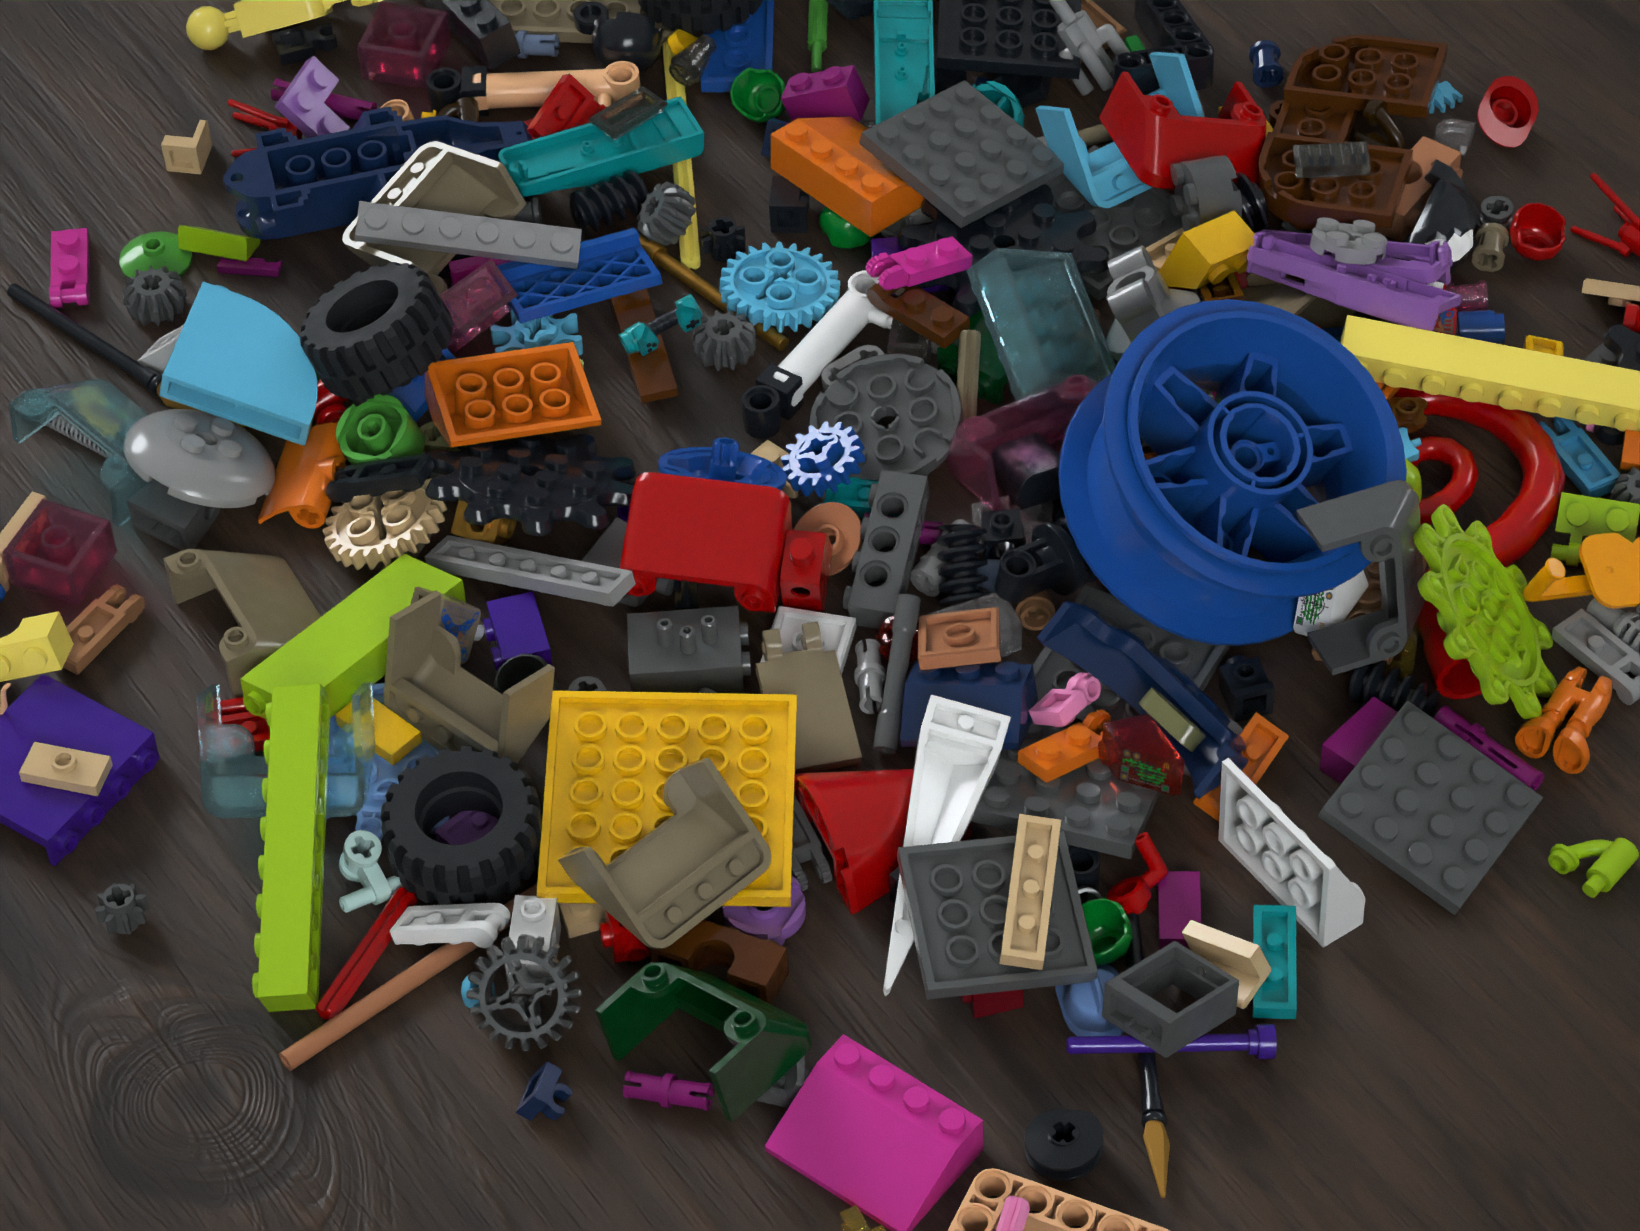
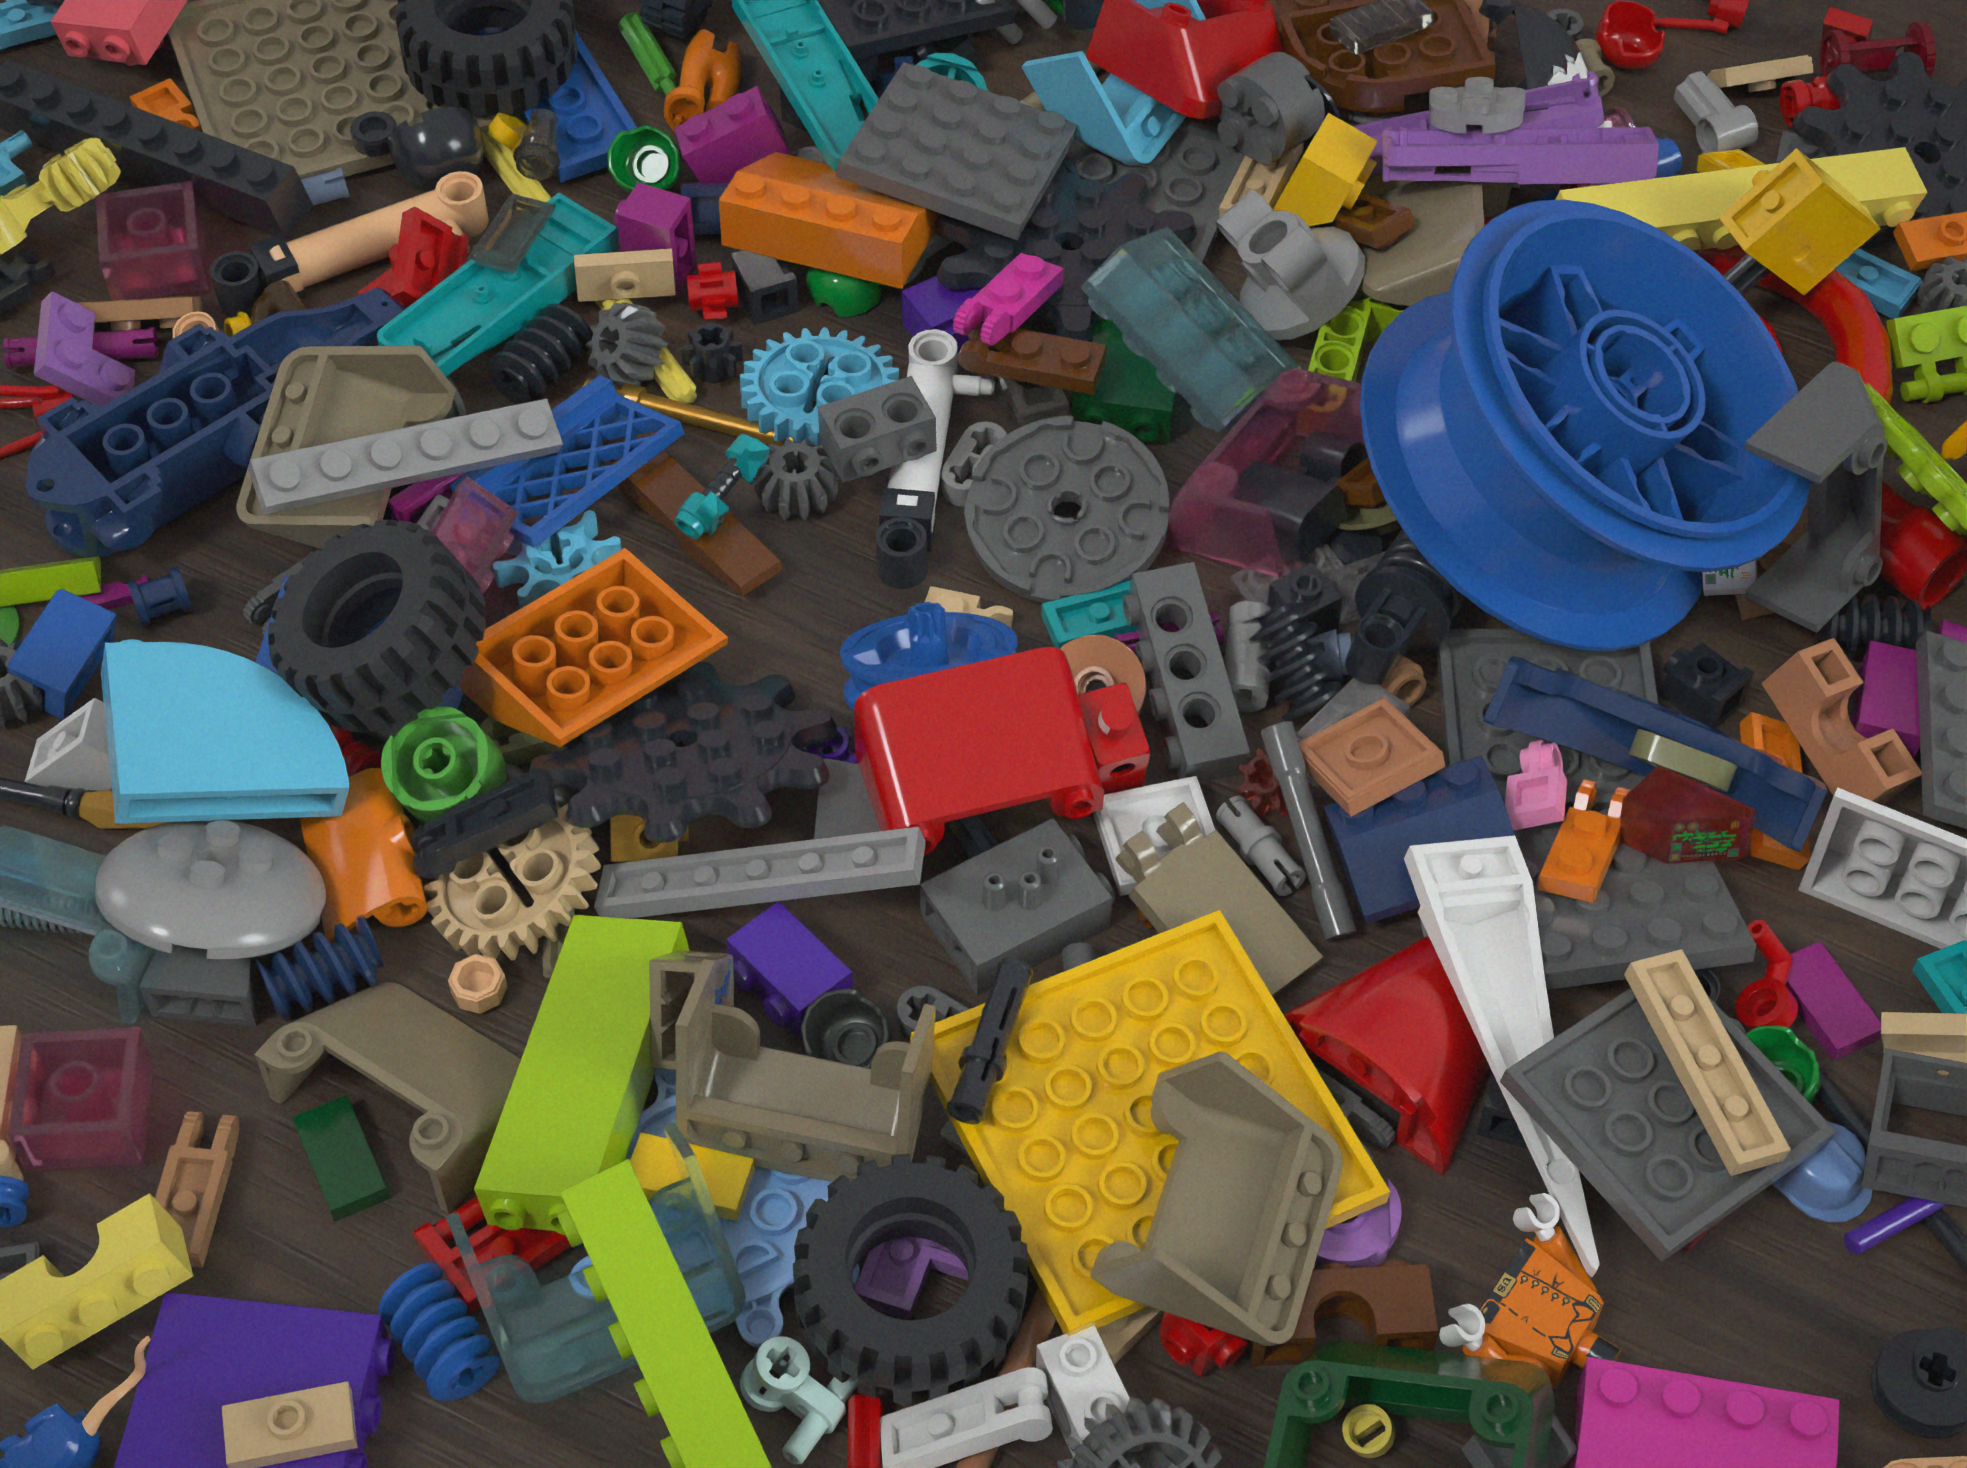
camera: 30 degrees left, 5 degrees up
(179, 758) = (437, 1333): none -> blue piece
(184, 283) = (64, 649): none -> blue panel
(191, 645) = (340, 1158): none -> dark green tile
(240, 532) = (321, 968): none -> dark blue piece
(279, 276) = (160, 596): none -> dark blue bush
(329, 576) = (477, 983): none -> light nougat tile
(364, 88) = (128, 313): none -> medium nougat plate
(560, 736) = (984, 1059): none -> black pin
(692, 167) = (624, 275): none -> tan plate
(692, 1029) = (1363, 1422): none -> light yellow hinge
(729, 150) = (656, 221): none -> magenta brick
(749, 198) = (712, 291): none -> red gear
(784, 322) = (877, 429): none -> dark grey brick
(823, 459) = (1030, 585): blue gear -> none
(839, 1001) = (1539, 1306): none -> orange torso
(841, 41) = (702, 67): none -> orange piece
(968, 371) = (1132, 410): dark tan axle -> none
(1301, 713) = (1813, 700): none -> nougat arch
(1504, 397) = (1795, 225): none -> yellow piece
(1560, 314) = (1716, 119): none -> light grey piece

